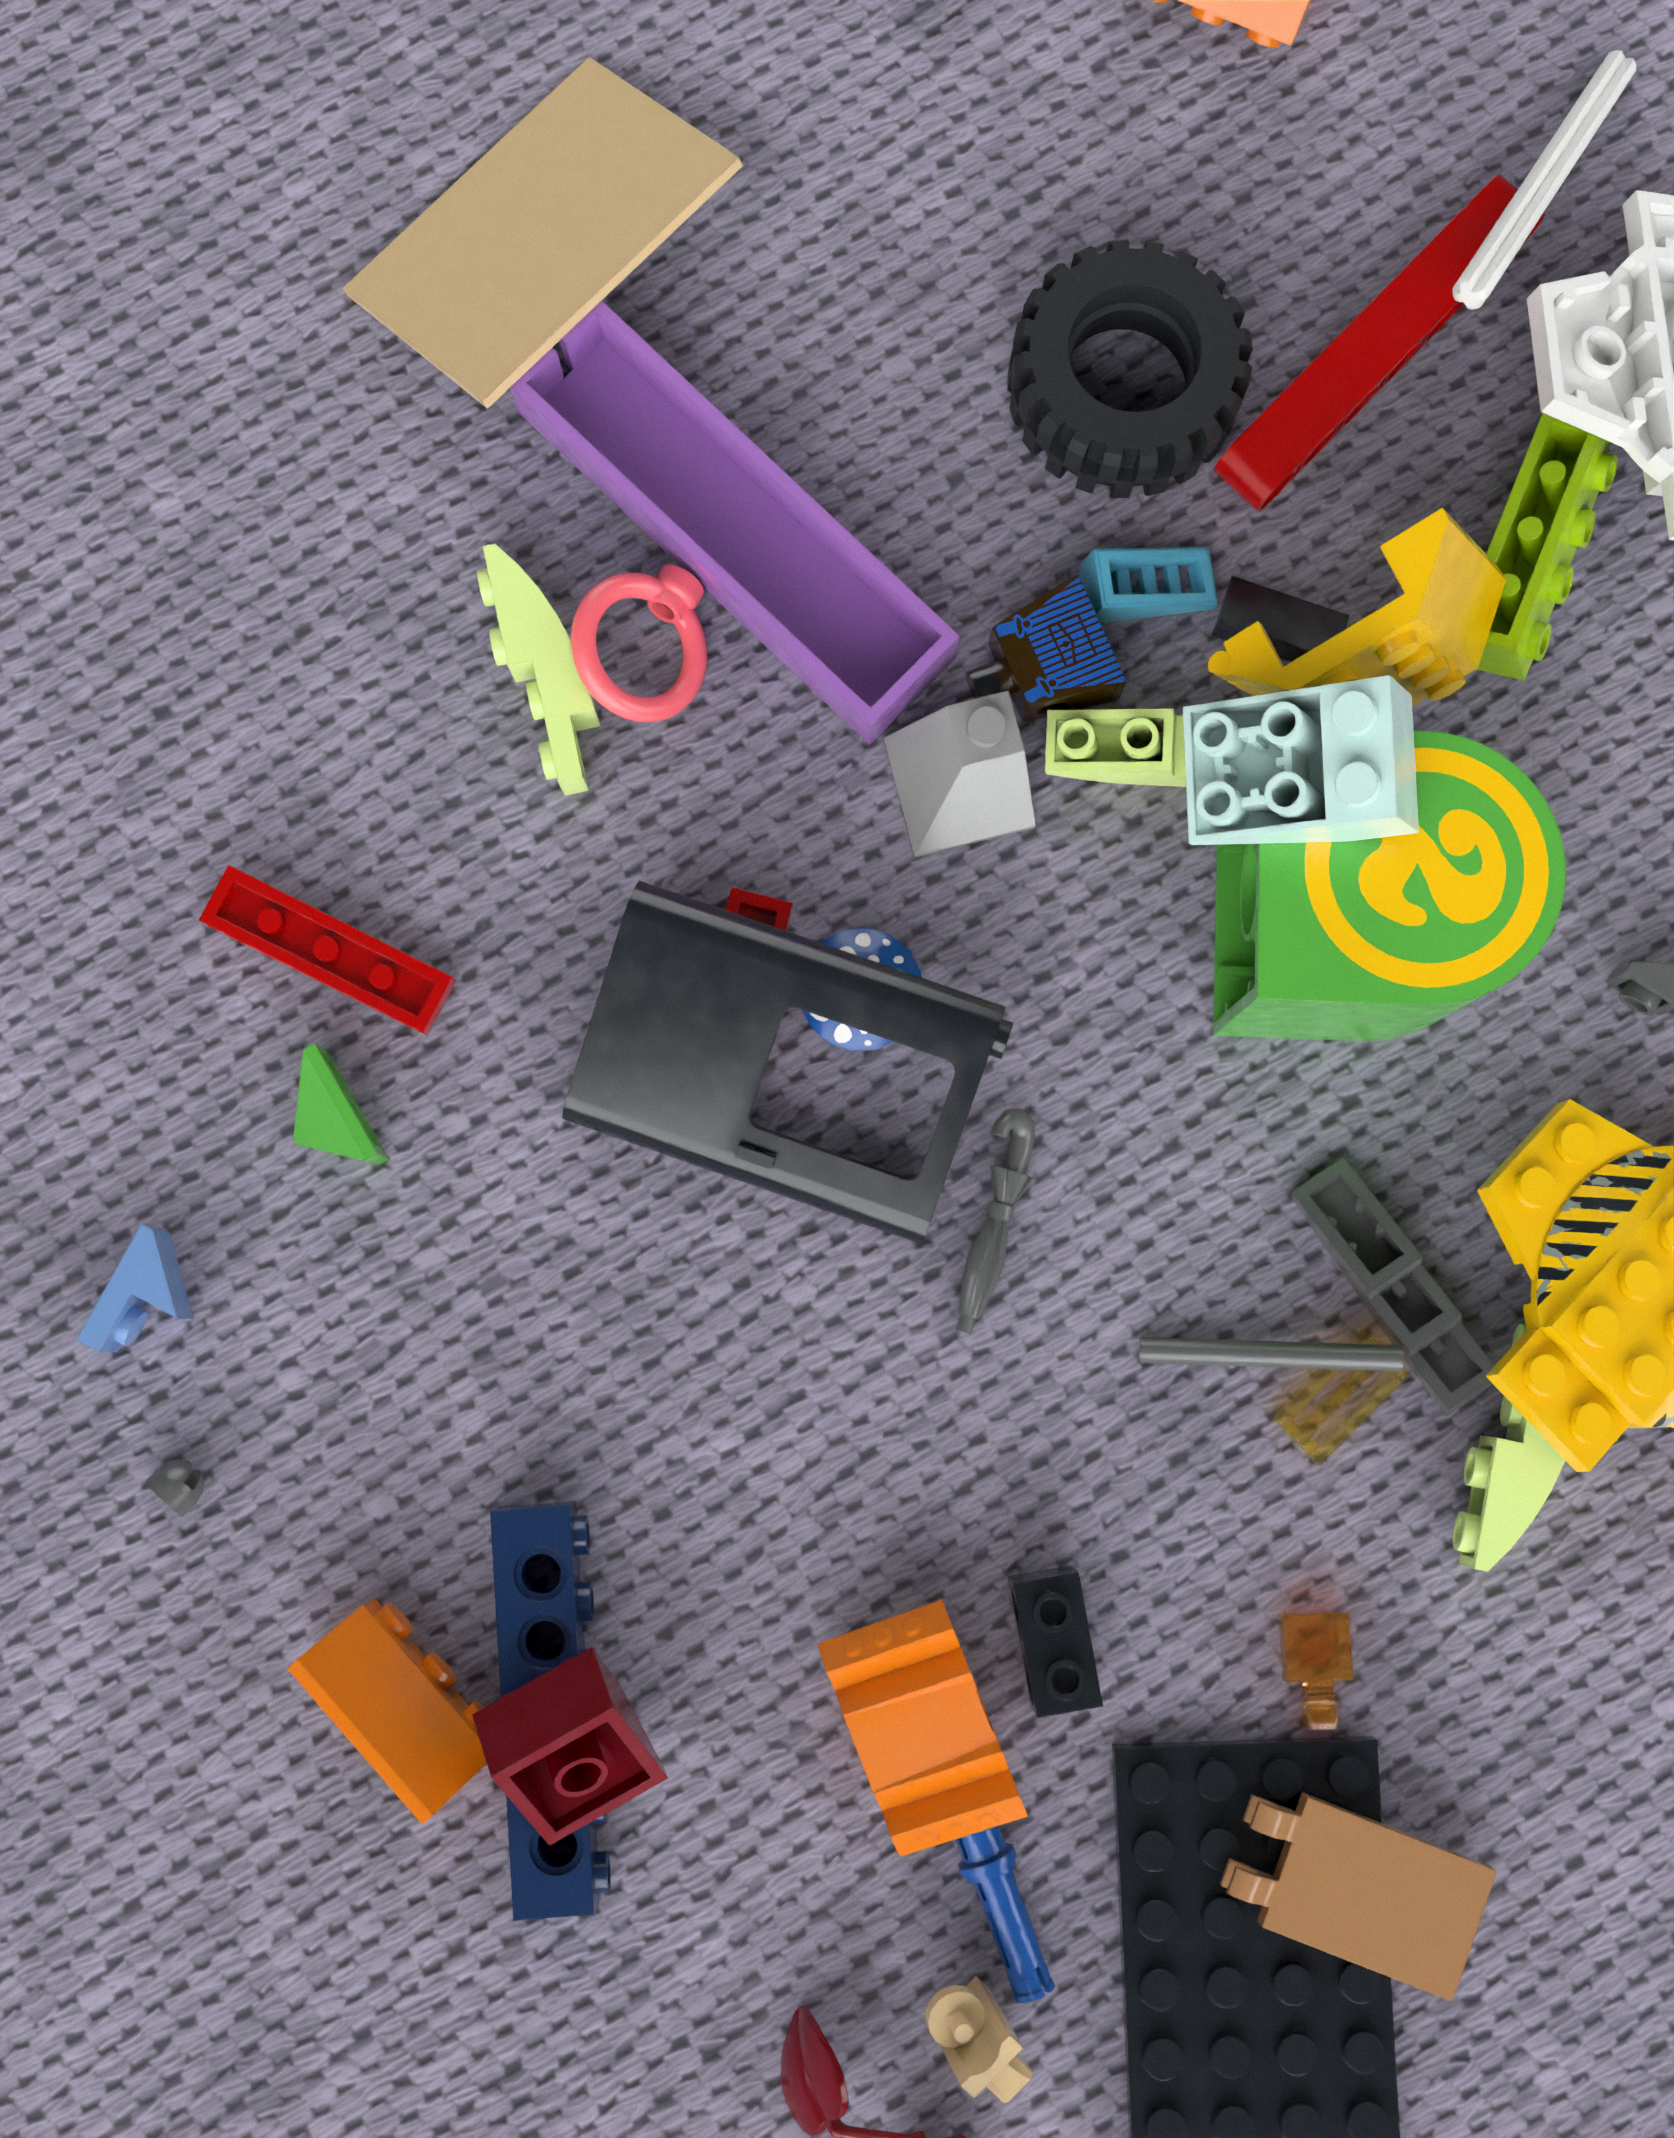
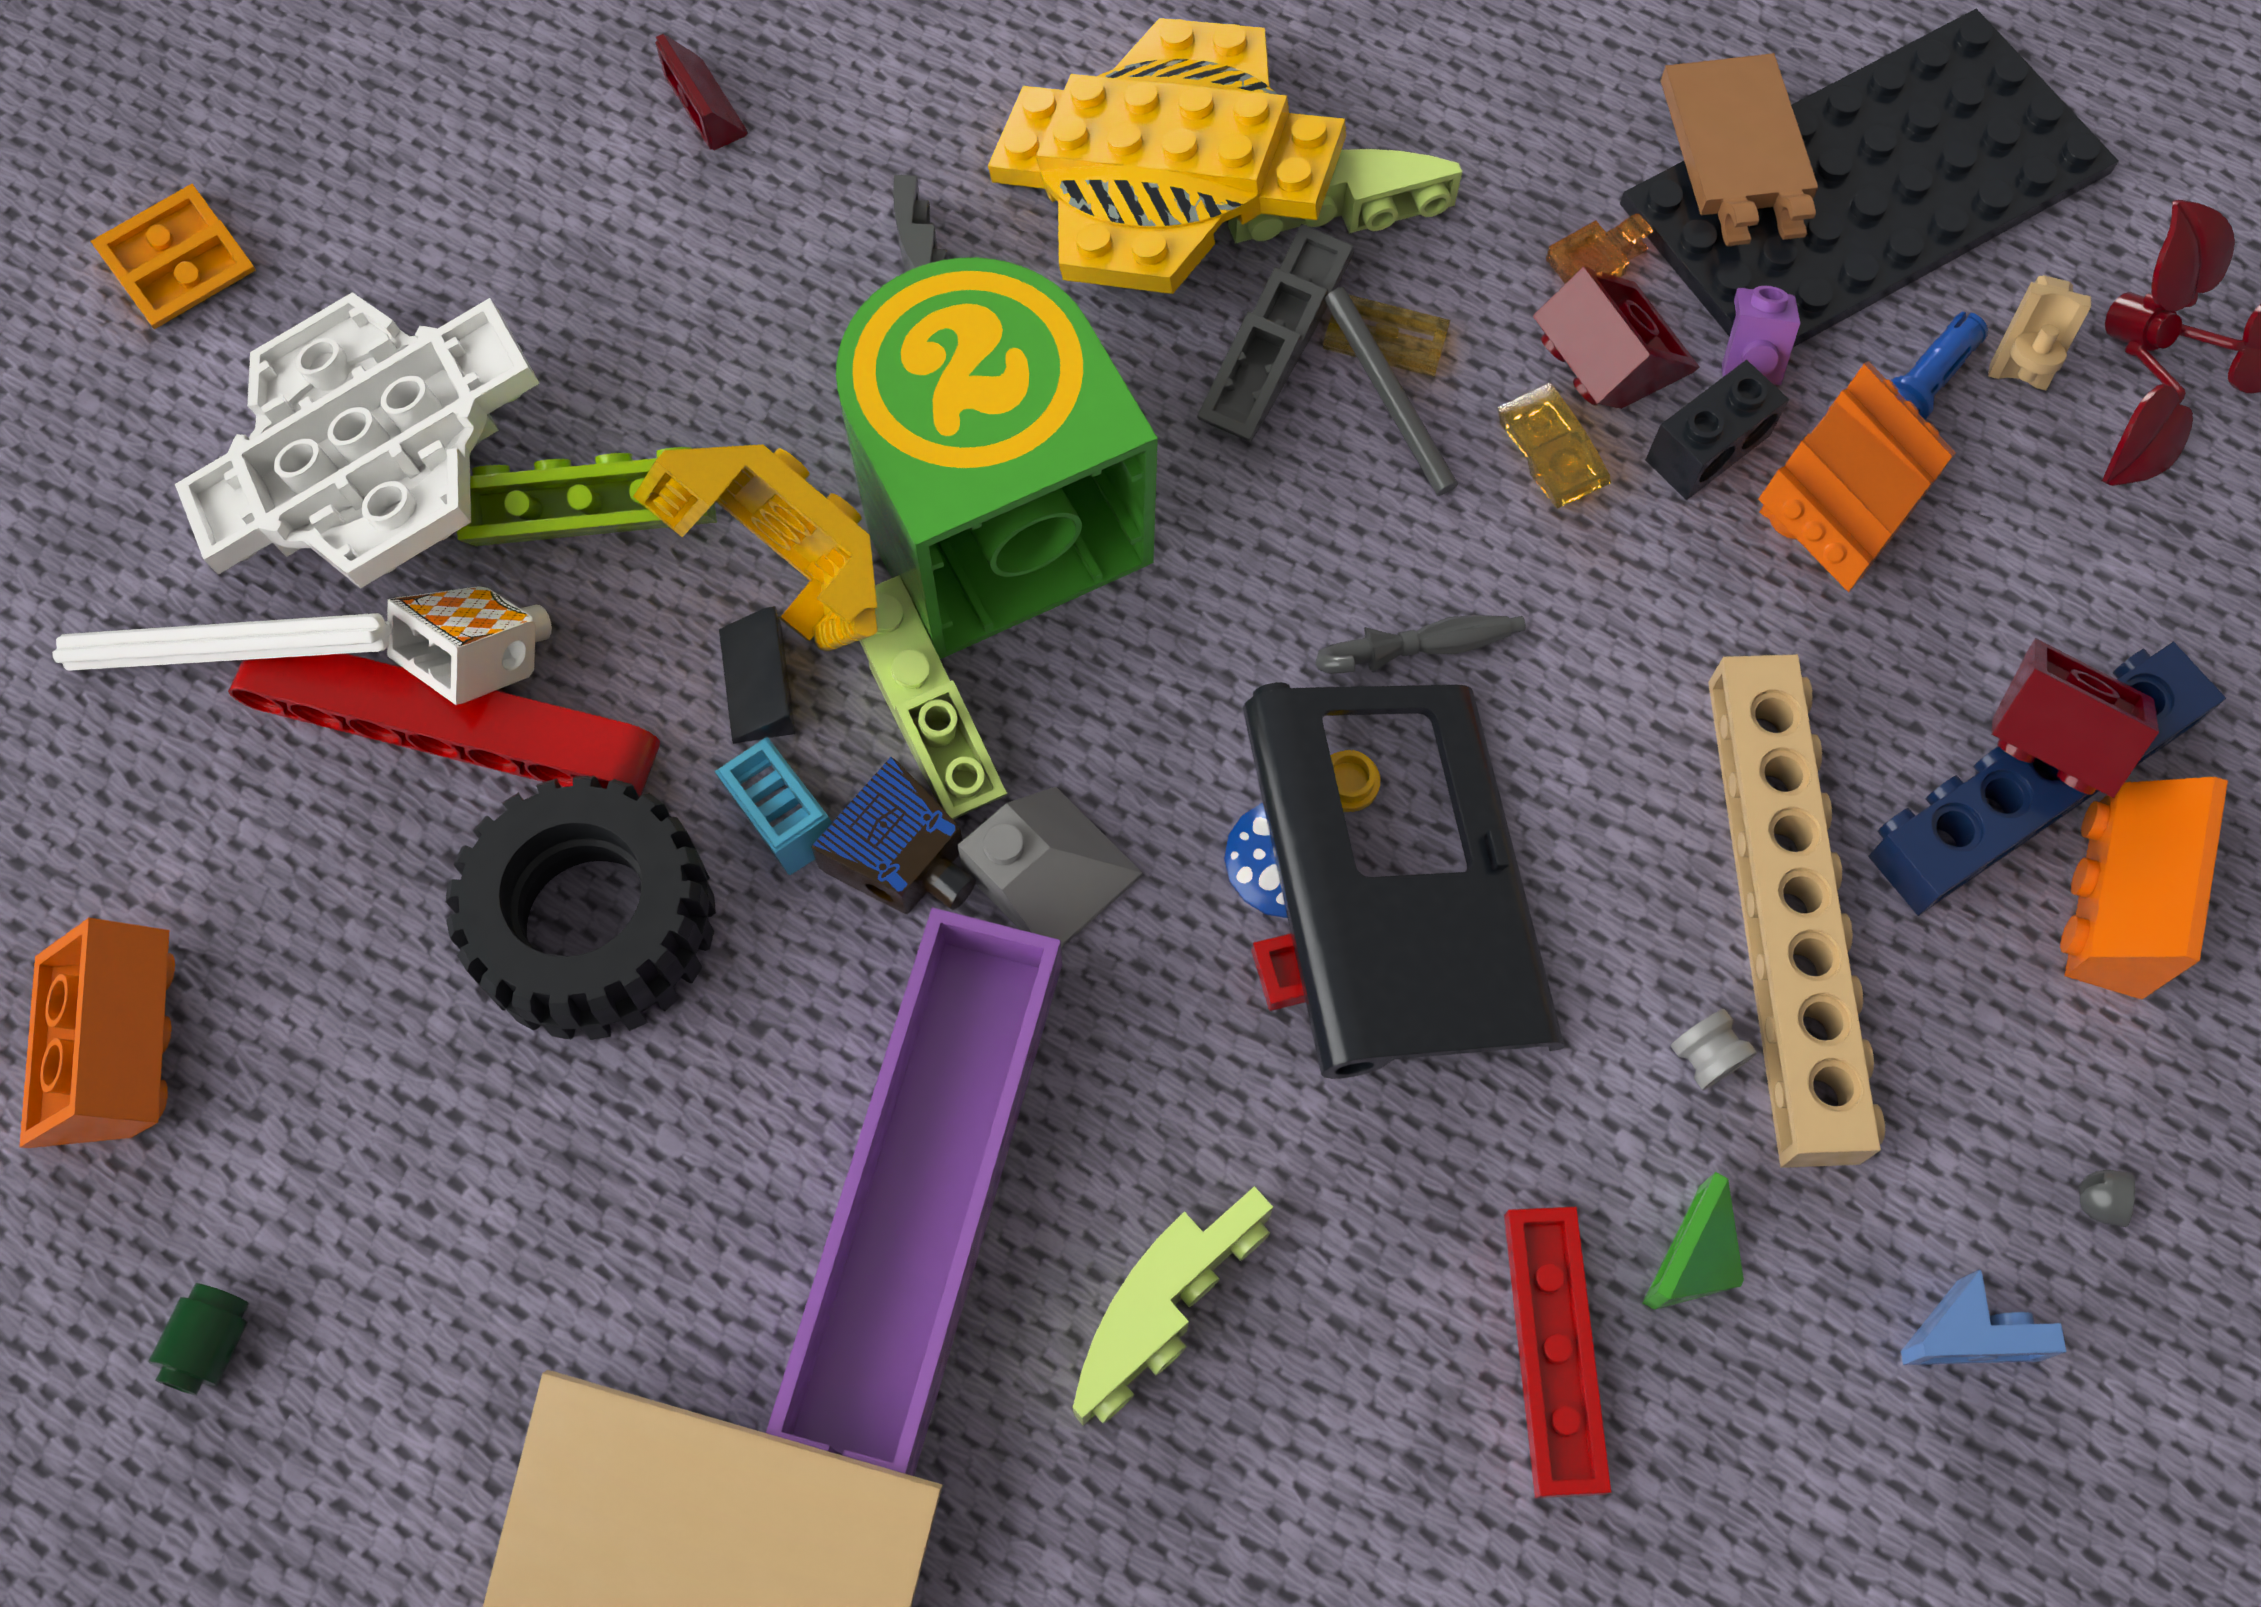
camera: 120 degrees left, 15 degrees down
(370, 1268) = (1805, 1127): none -> tan brick
(482, 1234) = (1713, 1049): none -> light grey wheel
(670, 598) = (1024, 1214): coral piece -> none
(898, 1079) = (1356, 779): none -> yellow plate
(1126, 1474) = (1555, 445): none -> clear yellow slope
(1136, 1760) = (1762, 331): none -> medium lavender bracket
(1209, 1612) = (1612, 339): none -> slope
(1302, 765) = (944, 484): light aqua slope -> none
(1438, 382) = (465, 640): none -> white torso

